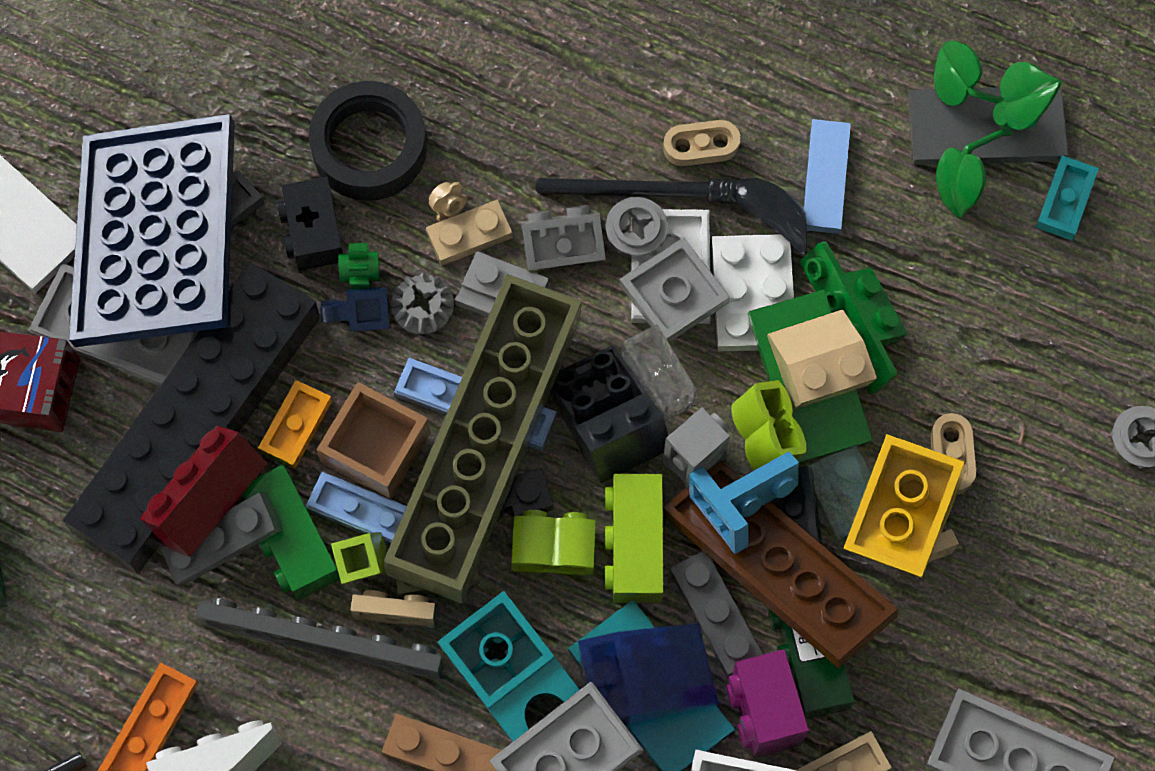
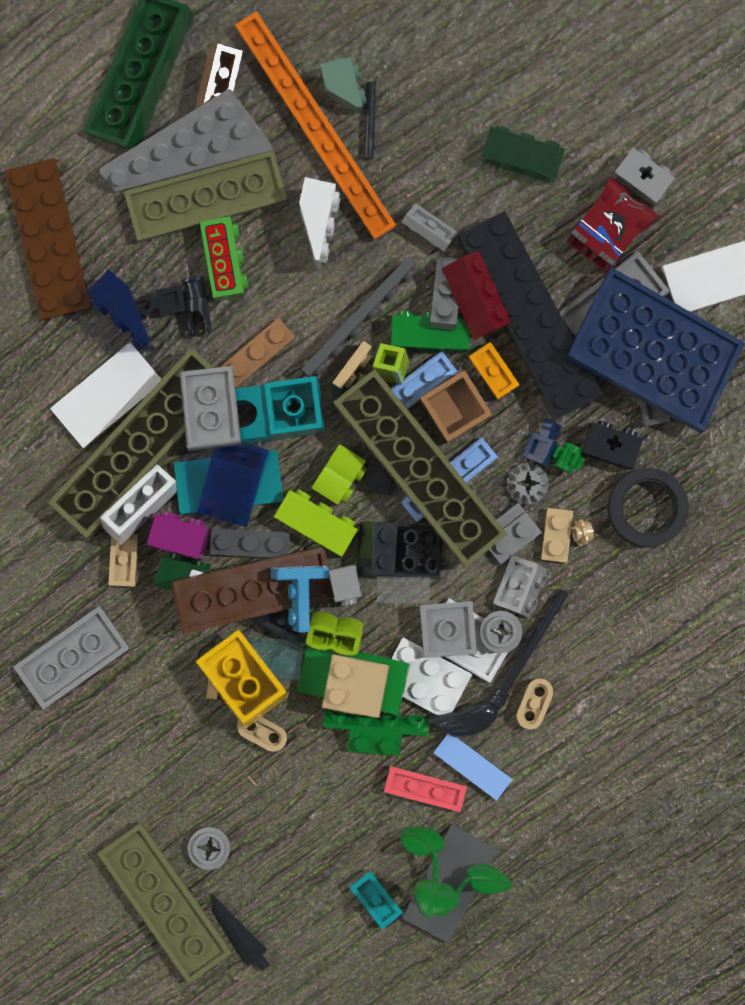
camera: 115 degrees right, 15 degrees up
(139, 616) = (429, 227): none -> light grey plate
(892, 214) = (425, 788): none -> coral plate

